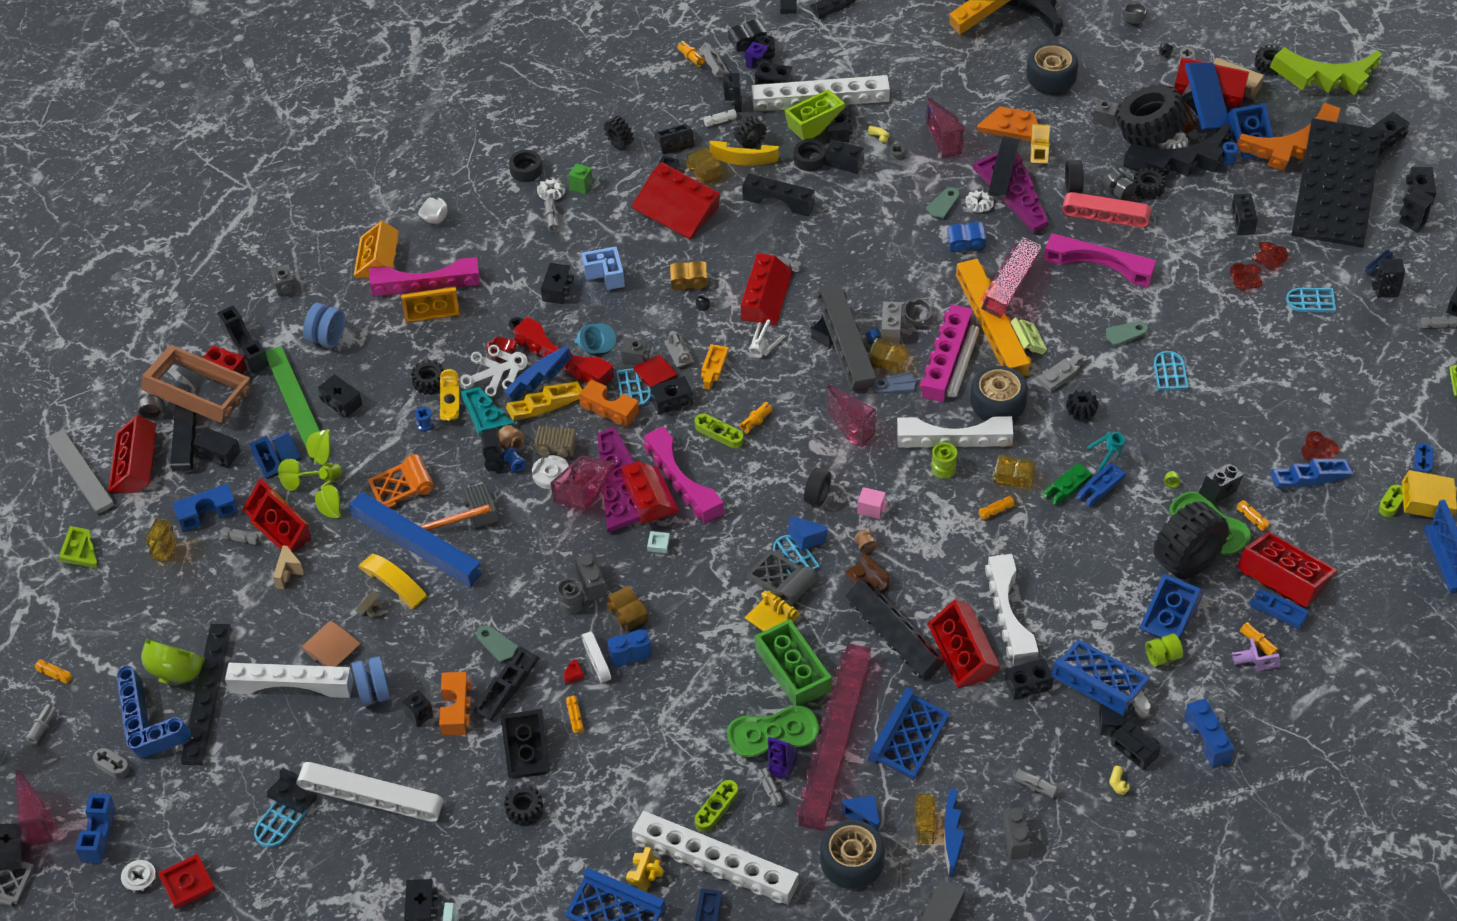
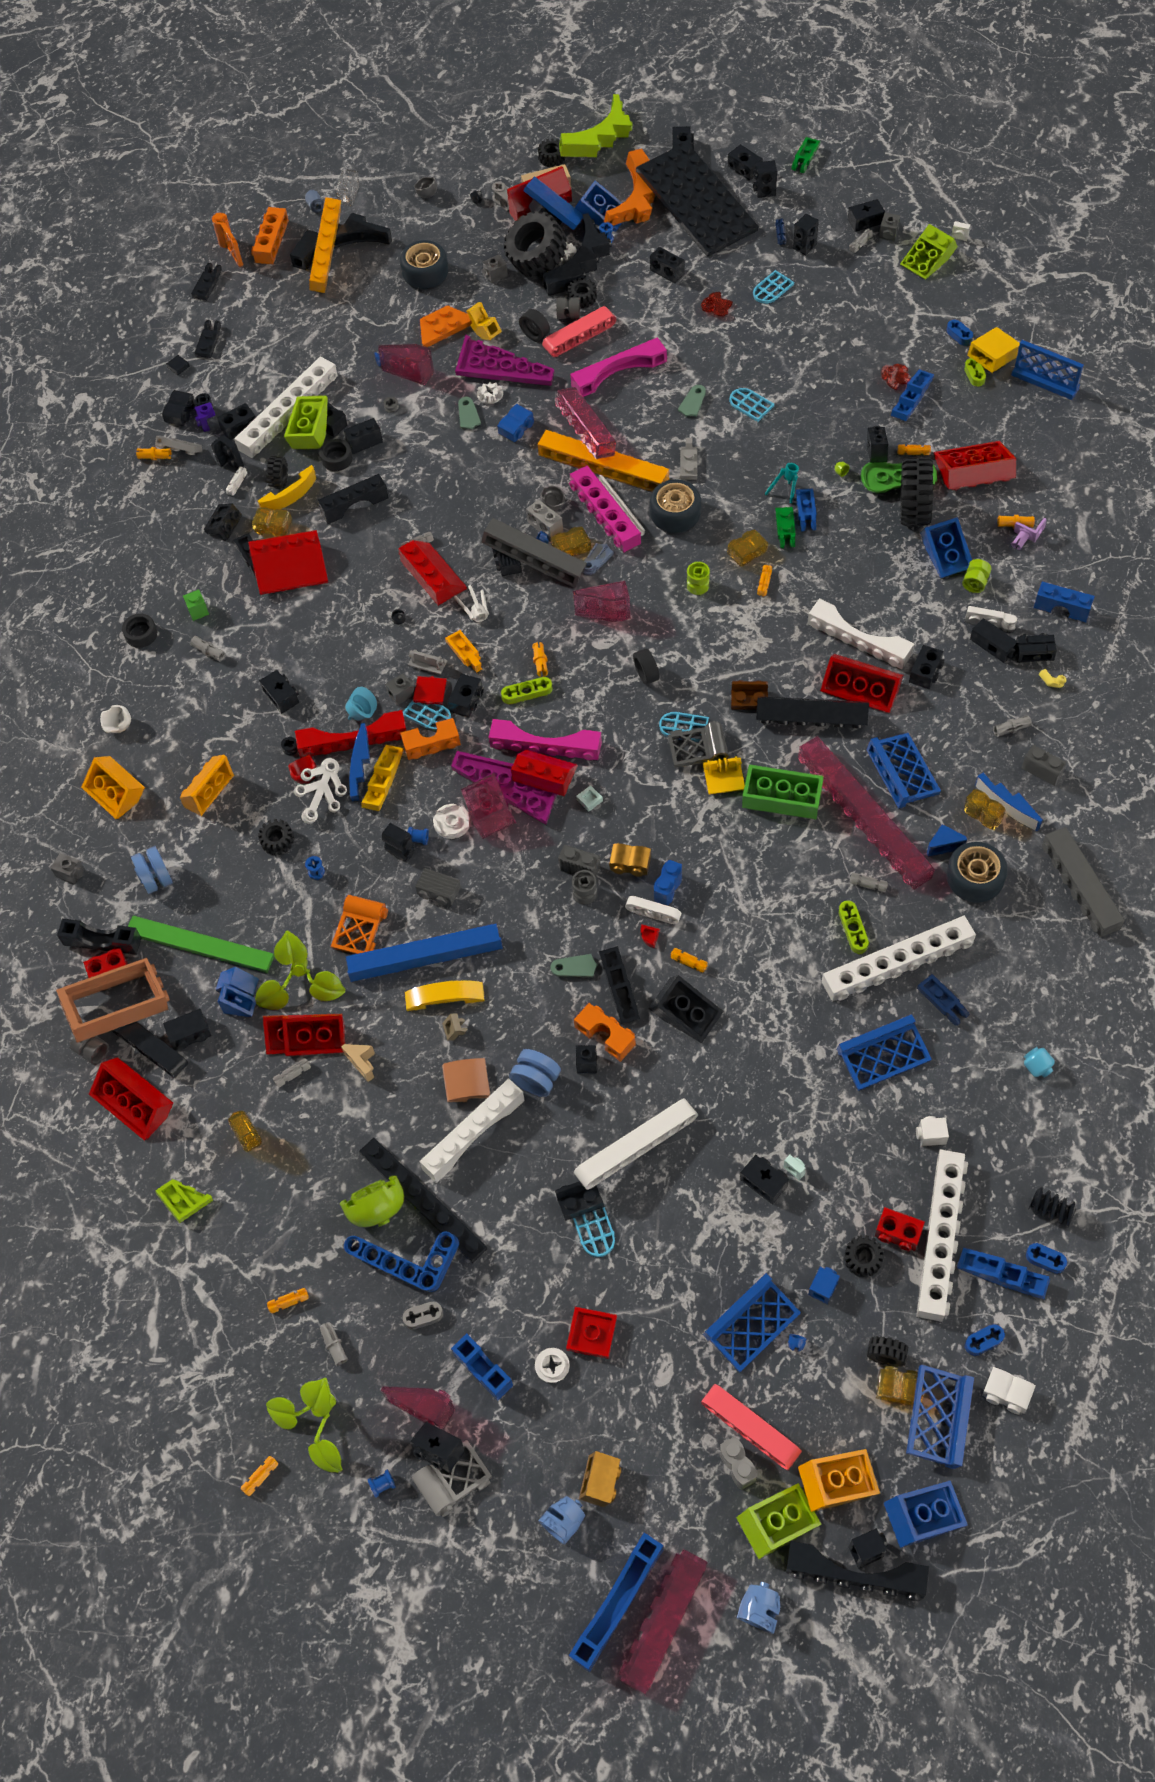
camera: 45 degrees left, 10 degrees up
(80, 471) = (100, 1147): light grey tile -> none
(217, 499) = (242, 1062): blue arch -> none
(340, 395) = (229, 908): black brick -> none
(390, 281) = (151, 798): dark pink arch -> none
(449, 386) = (302, 828): yellow piece -> none
(456, 518) = (437, 910): orange bar -> none
(483, 411) = (355, 826): teal wing -> none
(511, 437) = (398, 819): medium nougat head -> none
(519, 795) = (739, 1060): black tyre -> none
(555, 441) = (430, 797): dark tan brick -> none
(556, 193) = (187, 633): white gear -> none
(604, 264) = (301, 646): light blue brick -> none
(618, 132) = (181, 549): black tyre -> none
(647, 869) = (861, 1004): yellow hips -> none
(688, 275) = (365, 606): pearl gold brick -> none
(781, 757) = (858, 855): dark purple slope -> none
(793, 725) = (830, 836): bright green plate -> none
(806, 533) = (675, 703): blue slope -> none
(866, 541) = (718, 674): medium nougat wheel -> none
(871, 503) = (689, 646): bright pink brick -> none
(876, 131) = (363, 400): light yellow arm -> none
(993, 432) = (655, 577): white arch -> none
(1004, 166) = (483, 354): black slope -> none
(1029, 336) = (641, 453): yellowish green plate -> none
(1082, 405) = (730, 469): black gear -> none
(1092, 685) = (974, 633): blue fence -> none
(1270, 255) = (713, 279): clear red plate -> none
(1279, 608) = (1001, 492): blue hinge -> none

